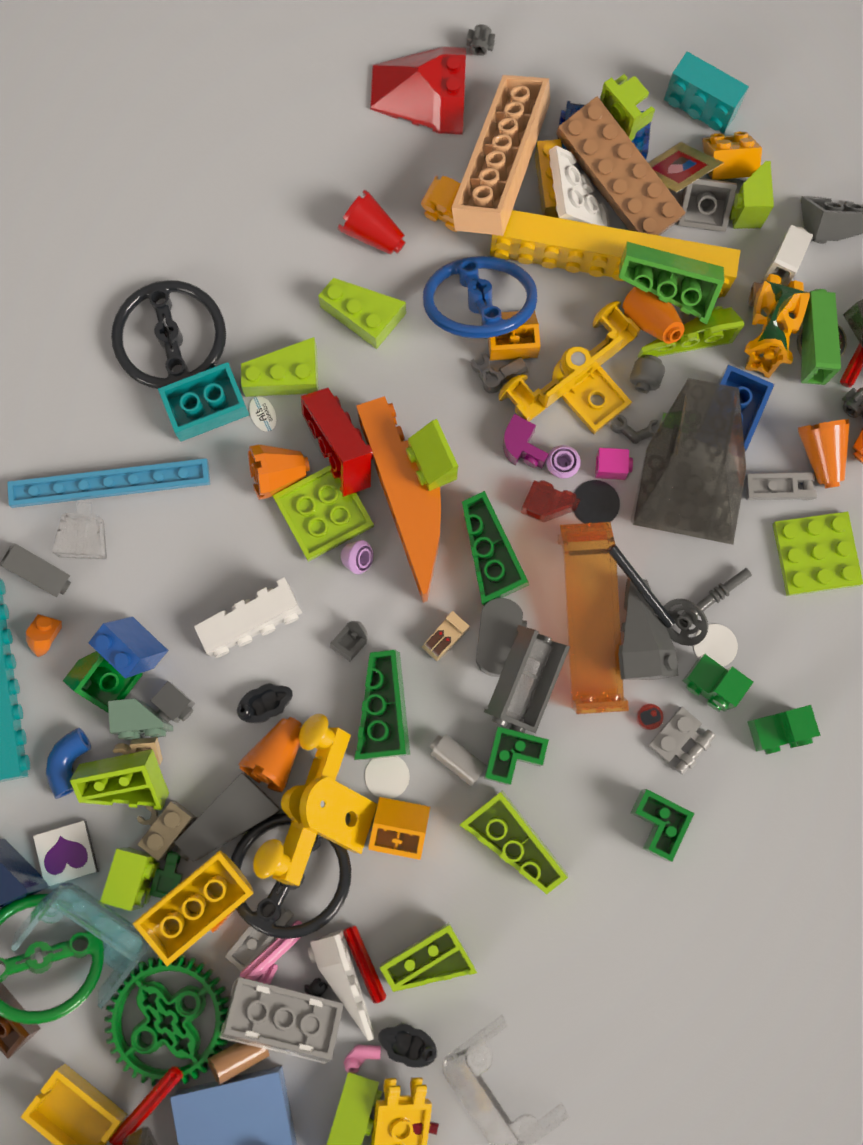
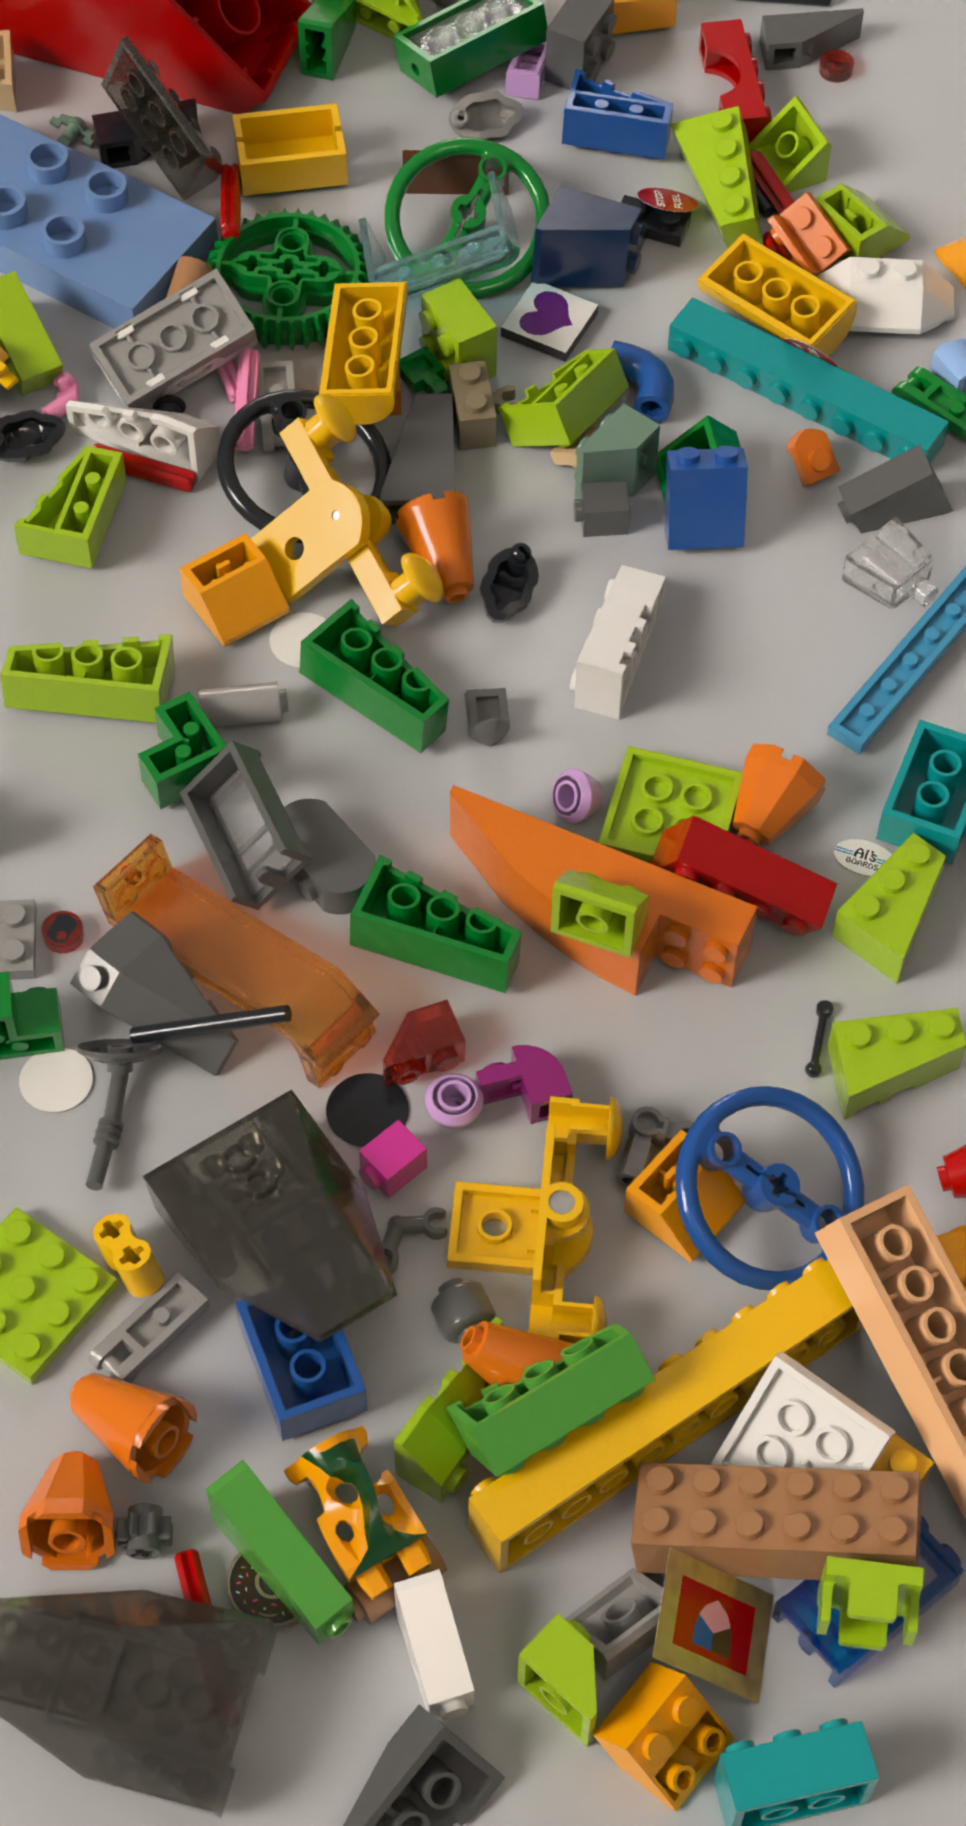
camera: 135 degrees right, 20 degrees down
(360, 363) = (823, 1010): none -> black hinge
(445, 636) = (387, 809): tan leg -> none
(765, 521) = (128, 1255): none -> yellow axle

